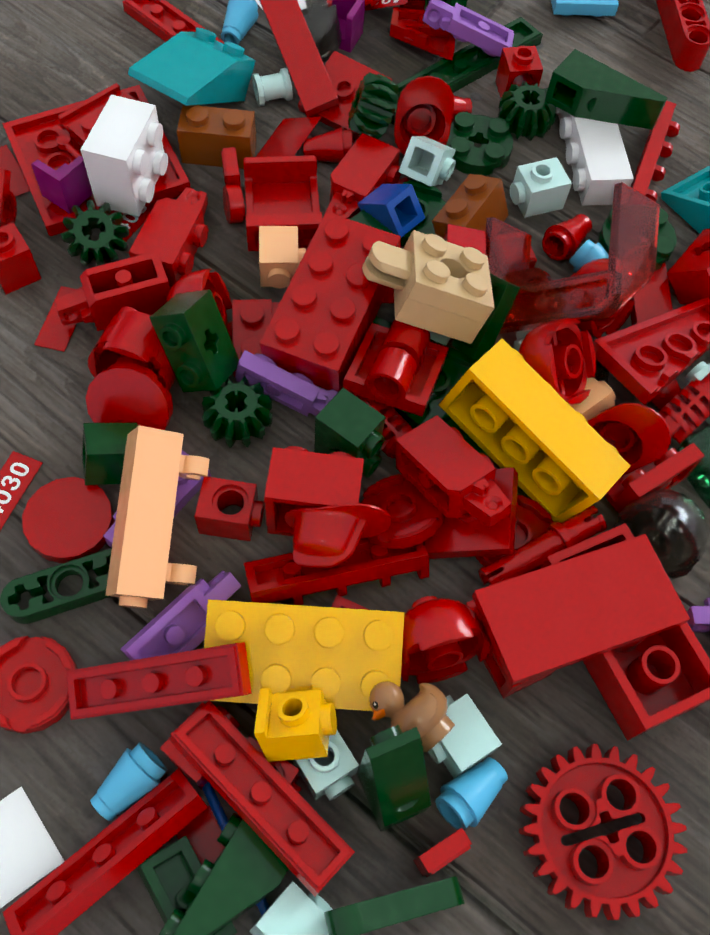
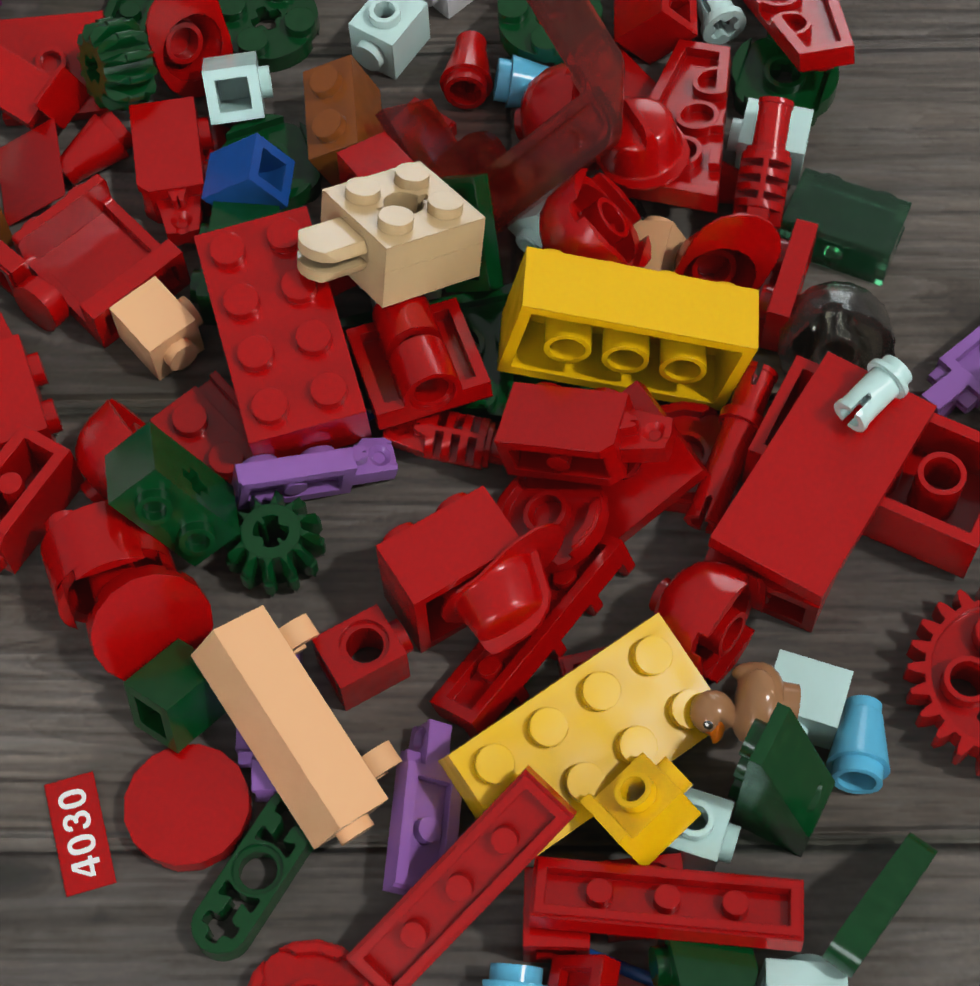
camera: 30 degrees left, 0 degrees up
(333, 108) = (61, 97): none -> red piece
(351, 428) = (431, 466): dark green brick -> none
(443, 853) = (880, 822): red tile -> none
(630, 335) = (650, 147): none -> red piece
(653, 579) = (885, 380): none -> light aqua pin

